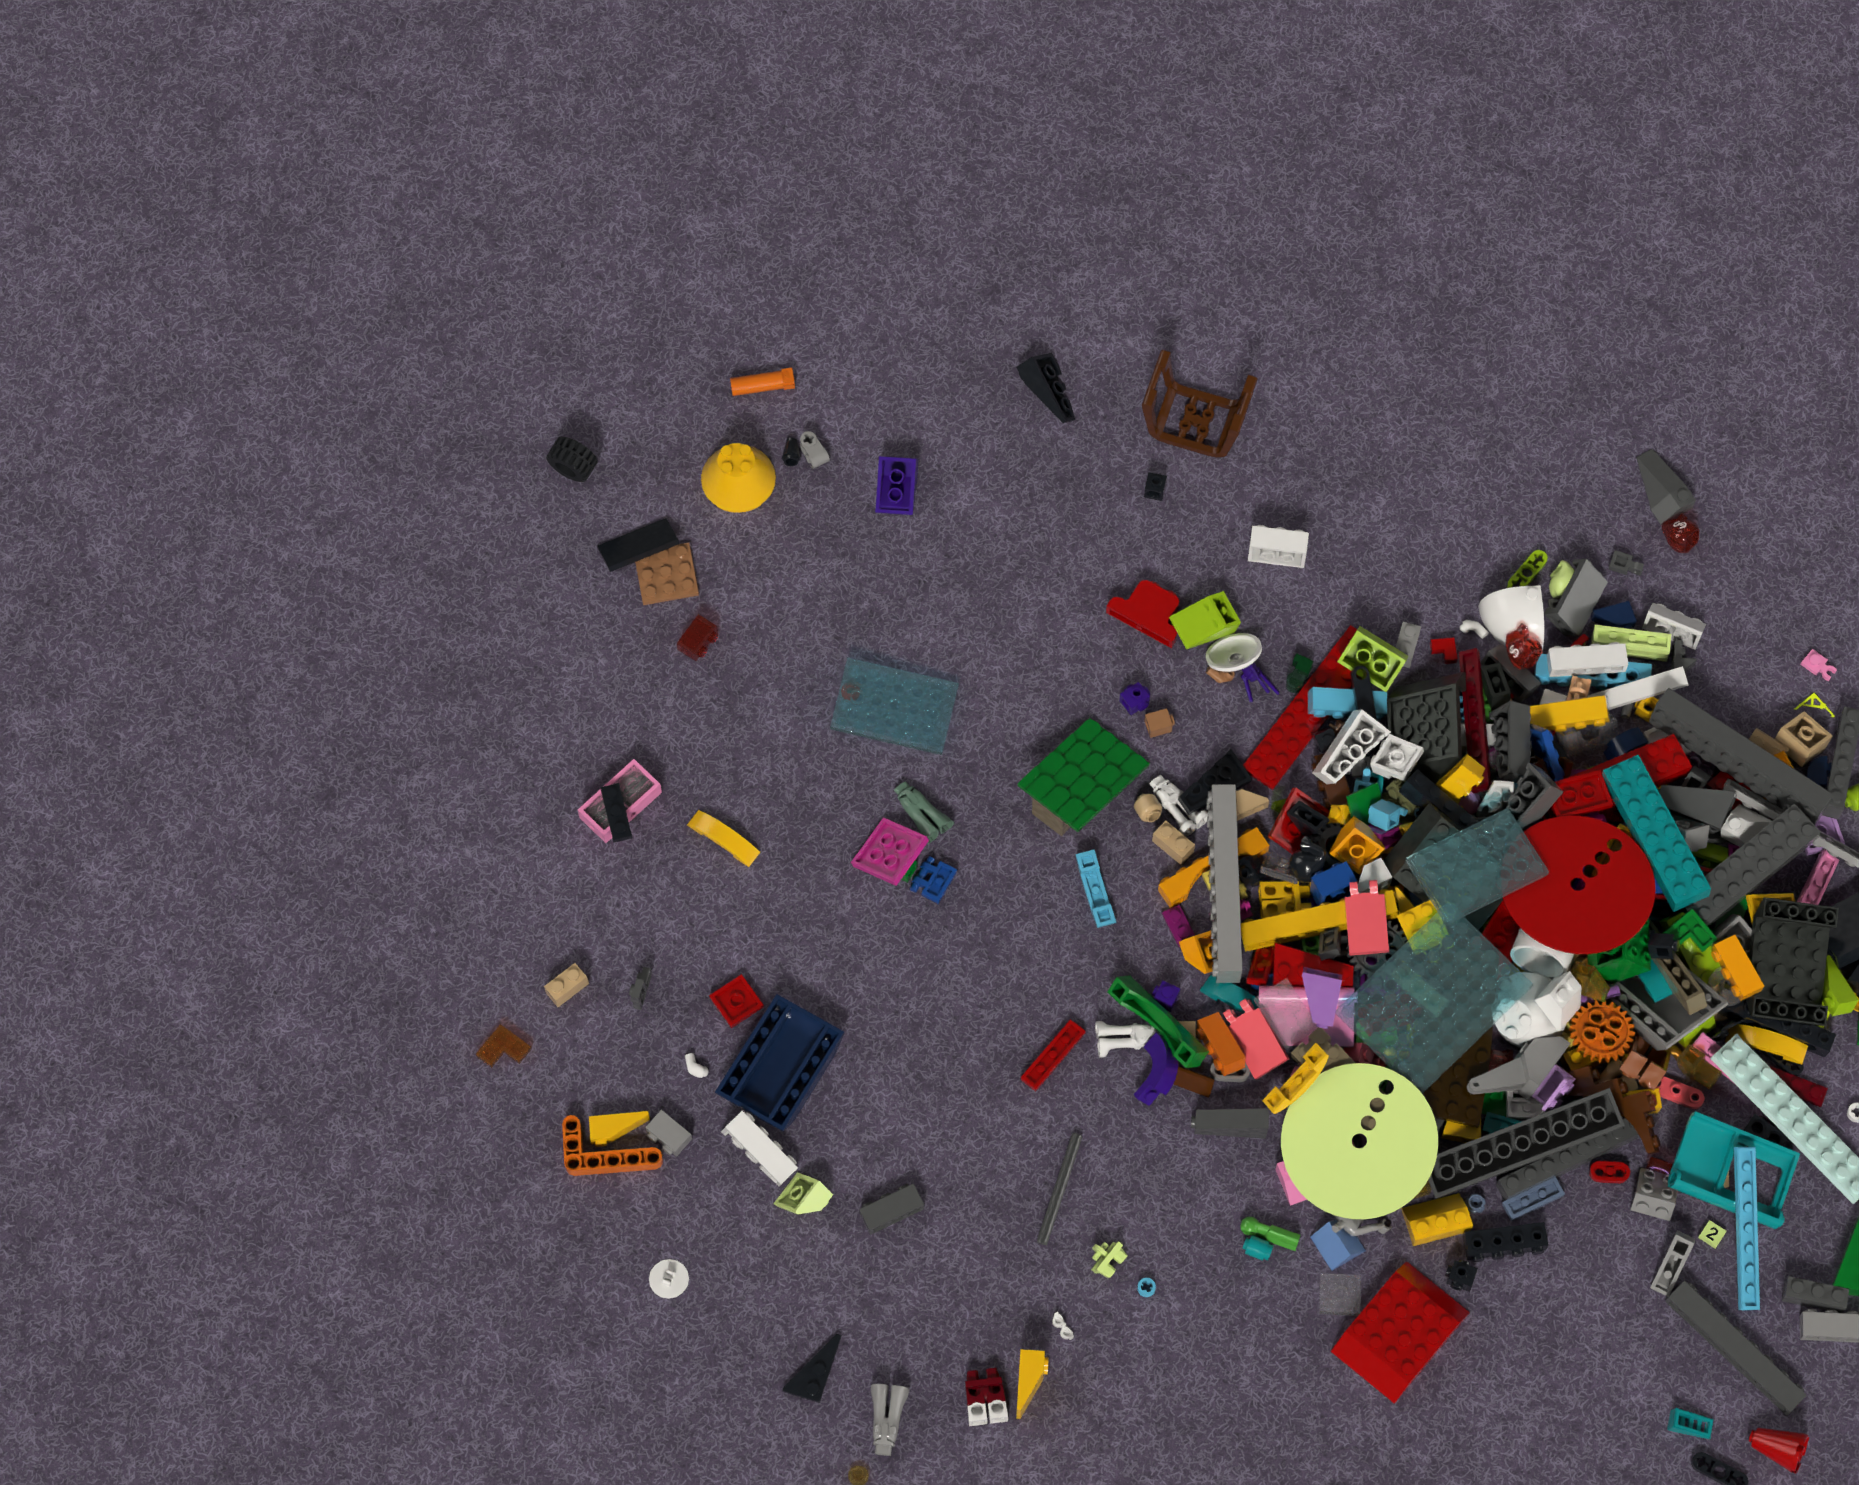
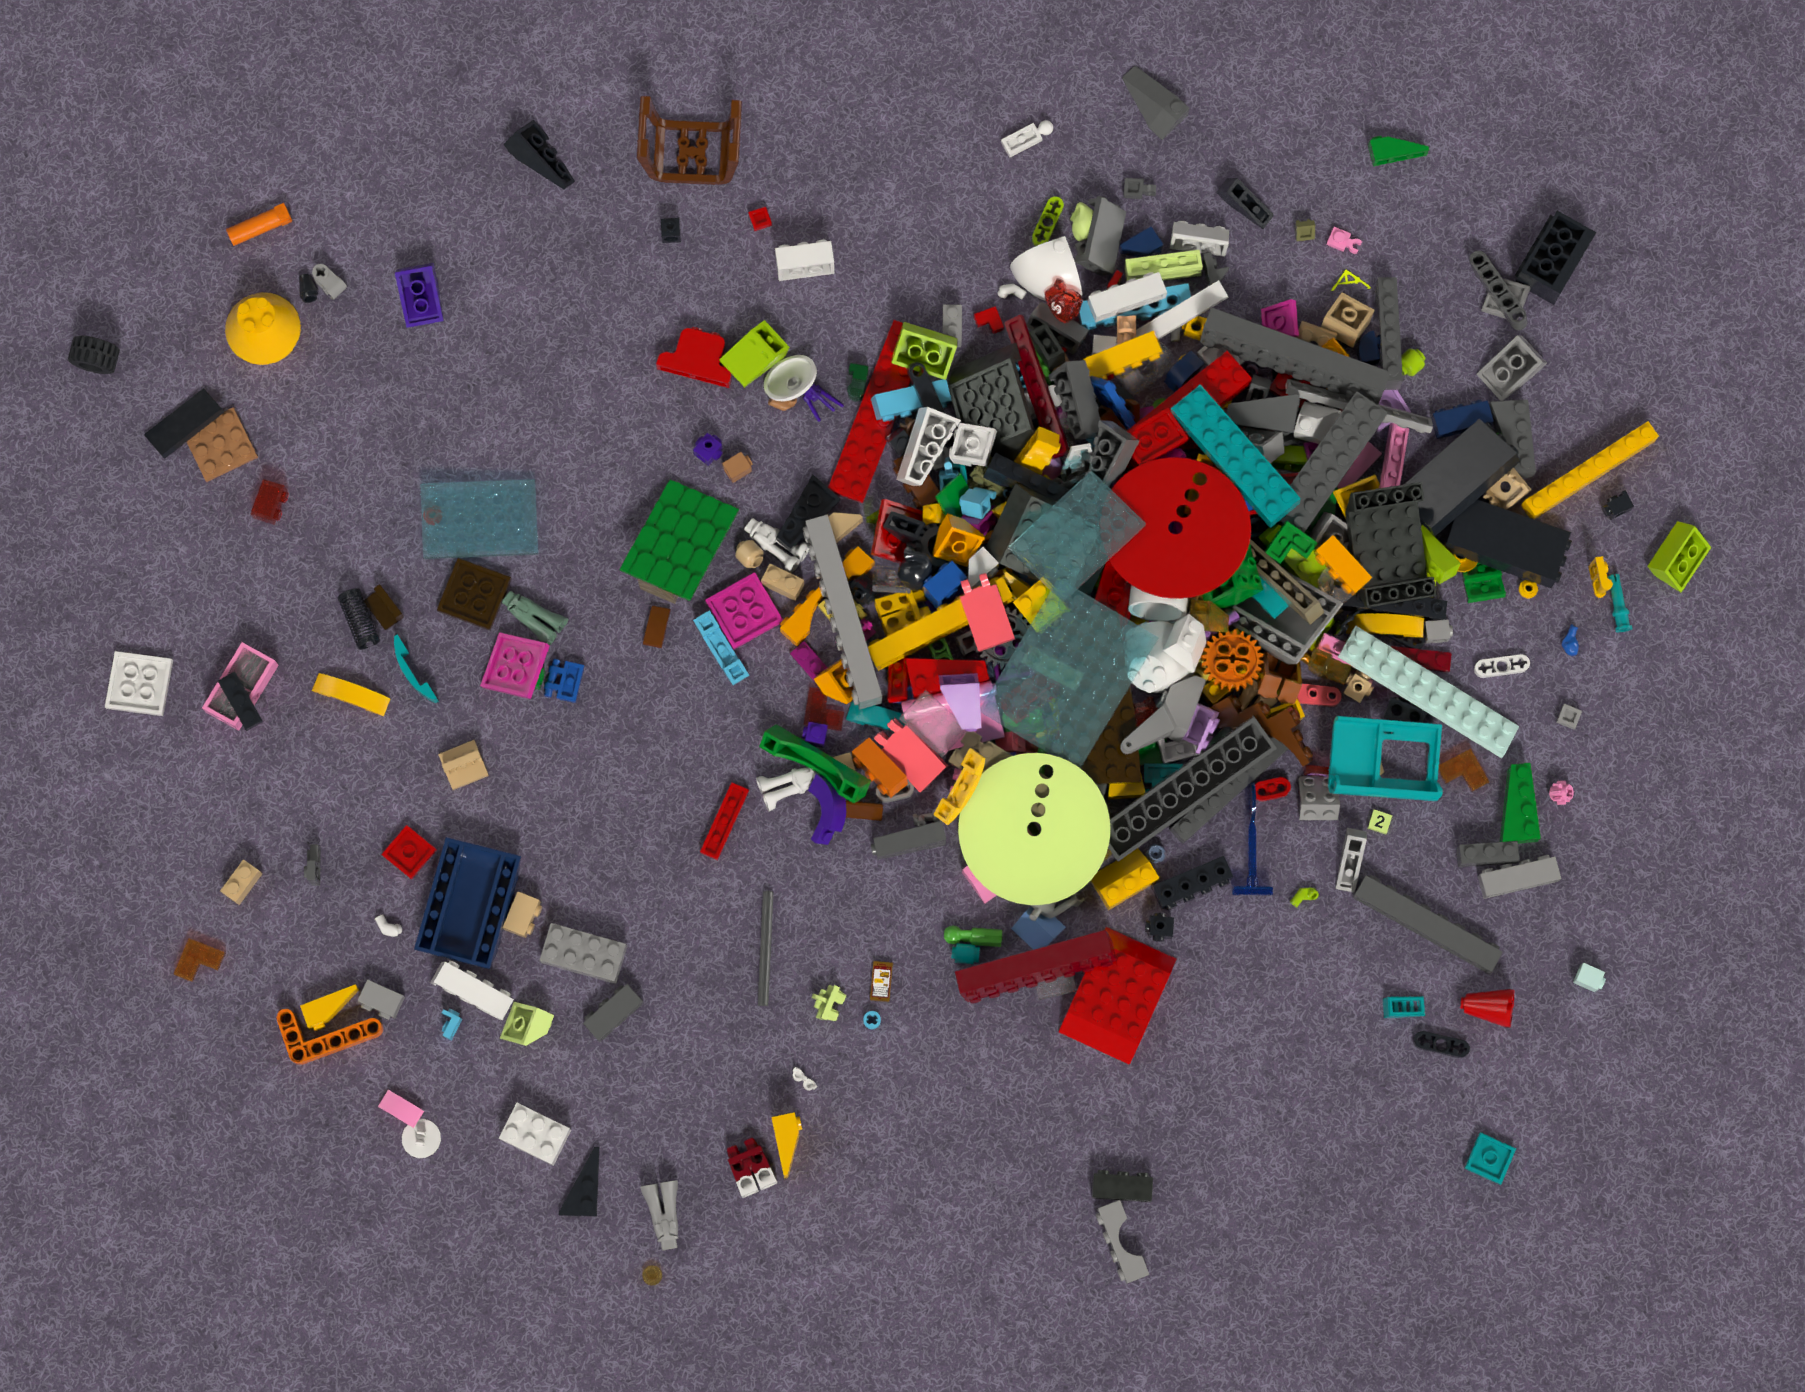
camera: 20 degrees left, 10 degrees up
(523, 773) = (138, 683): none -> white plate
(657, 1244) = (401, 1108): none -> bright pink slope
(727, 1180) = (451, 1027): none -> medium azure bracket
(756, 747) = (342, 599): none -> black piece
(778, 765) = (383, 608): none -> dark brown panel
(781, 1304) = (535, 1134): none -> white brick
(794, 851) = (401, 651): none -> teal slope
(812, 933) = (463, 765): none -> tan bracket
(829, 1090) = (522, 915): none -> tan brick
(869, 775) = (474, 594): none -> dark brown plate
(878, 1143) = (583, 953): none -> light grey brick
(1038, 852) = (656, 626): none -> reddish brown slope
(1128, 860) = (744, 611): none -> dark pink plate
(1166, 1252) = (881, 981): none -> tile
(1174, 972) = (817, 712): none -> clear red plate
(1245, 498) = (760, 218): none -> red plate
(1252, 1105) = (920, 820): none -> light grey piece
(1325, 1276) = (1036, 966): none -> dark red brick
(1329, 943) = (957, 644): dark grey plate -> none
(1526, 488) = (1026, 137): none -> white plate
(1533, 1199) = (1207, 834): sand blue plate -> none
(1565, 1262) = (1252, 886): none -> clear blue piece
(1616, 1284) = (1304, 894): none -> lime arm
(1662, 945) = (1268, 564): black brick -> none
(1681, 533) = (1183, 144): clear red piece -> none
(1718, 1097) = (1356, 692): none -> tan brick
(1727, 601) = (1244, 202): none -> black slope
(1738, 718) = (1281, 317): none -> dark pink plate
(1746, 1228) = (1410, 810): medium azure tile -> none
(1781, 880) = (1360, 465): none -> bright pink tile
(1782, 644) = (1305, 230): none -> olive tile
(1815, 1203) = (1466, 766): none -> clear orange plate
(1818, 1063) = (1437, 631): none -> light grey brick

